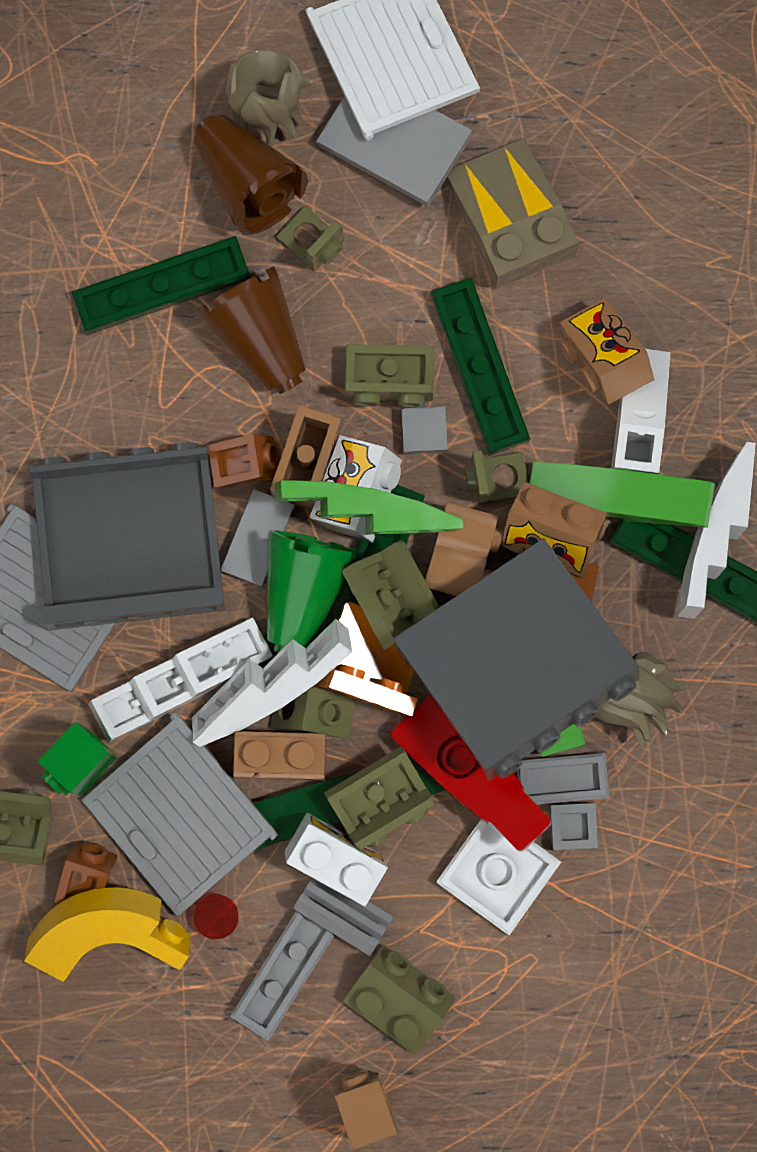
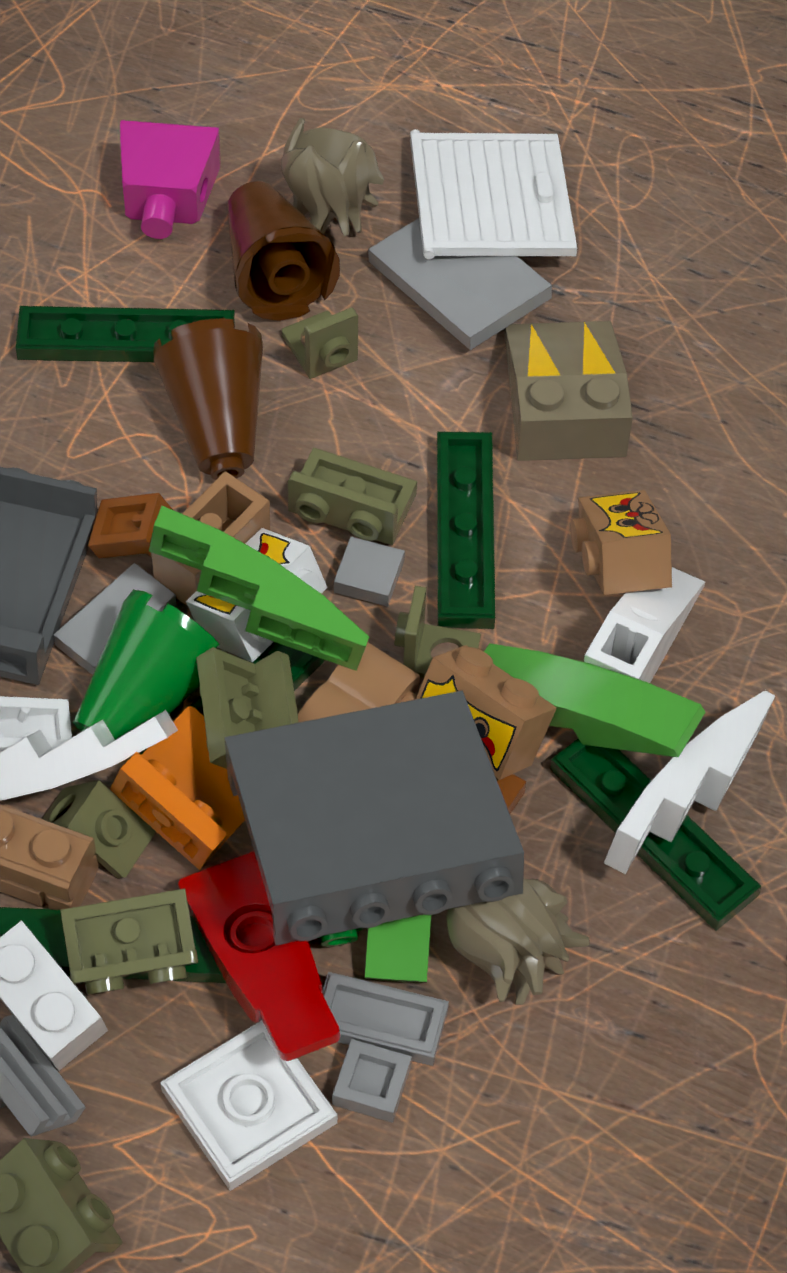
camera: 15 degrees right, 25 degrees down
(132, 128) = (167, 173): none -> dark pink torso

